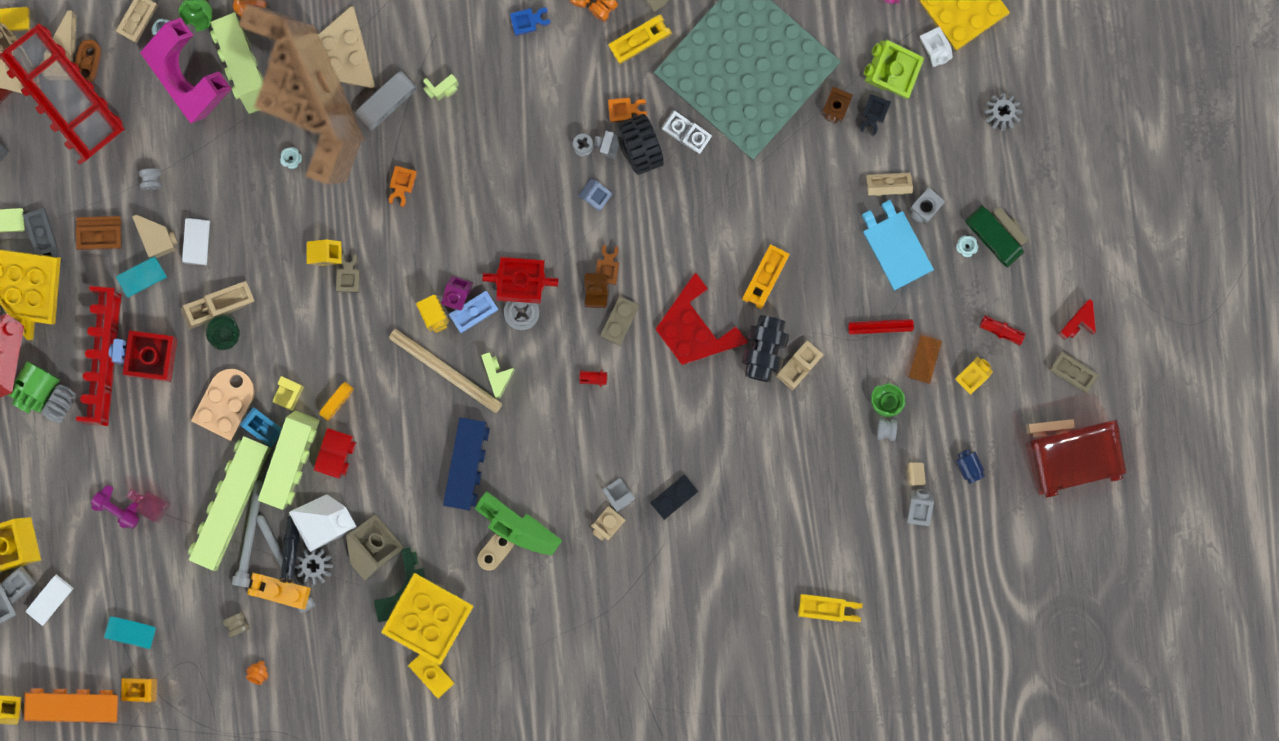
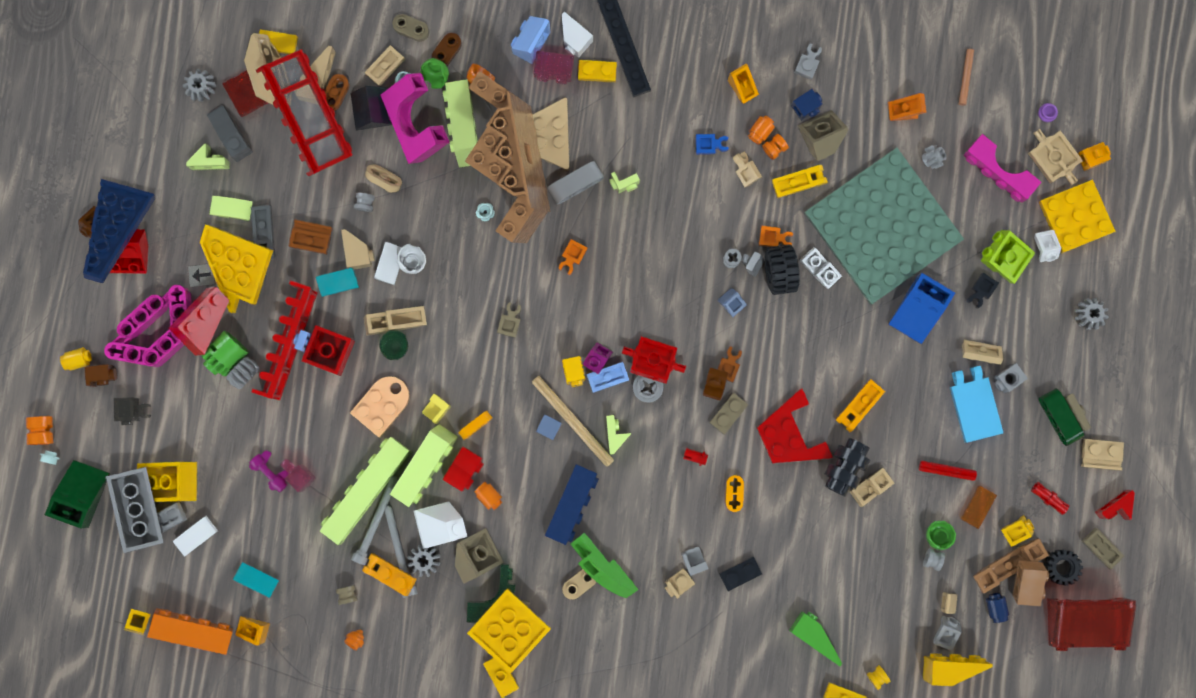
camera: 10 degrees right, 0 degrees up
(130, 70) = (369, 108): none -> black slope
(166, 147) = (383, 178): none -> tan plate
(219, 231) = (411, 259): none -> white hair
(261, 427) = (407, 432): dark azure slope -> none
(291, 540) = (409, 536): black pin -> none
(324, 252) = (494, 297): yellow brick -> none
(370, 477) = (488, 496): none -> orange brick
(420, 383) = (548, 427): none -> sand blue slope
(577, 41) = (747, 170): none -> tan plate
(652, 408) = (739, 493): none -> light orange beam
(769, 544) = (813, 634): none -> bright green slope
(809, 151) = (921, 308): none -> blue slope
(836, 115) = (955, 268): reddish brown brick -> none
(854, 575) = (878, 677): none -> yellow wheel
(927, 548) = (953, 669): none -> yellow slope
(973, 246) = (1040, 419): light aqua plate -> none
(973, 415) = (1007, 565): none -> medium nougat slope
(999, 430) = (1030, 583): none -> medium nougat brick
(1041, 429) = (1080, 592): tan plate -> none
(1047, 403) = (1073, 561): none -> black tyre
(1051, 267) = (1102, 454): none -> tan plate

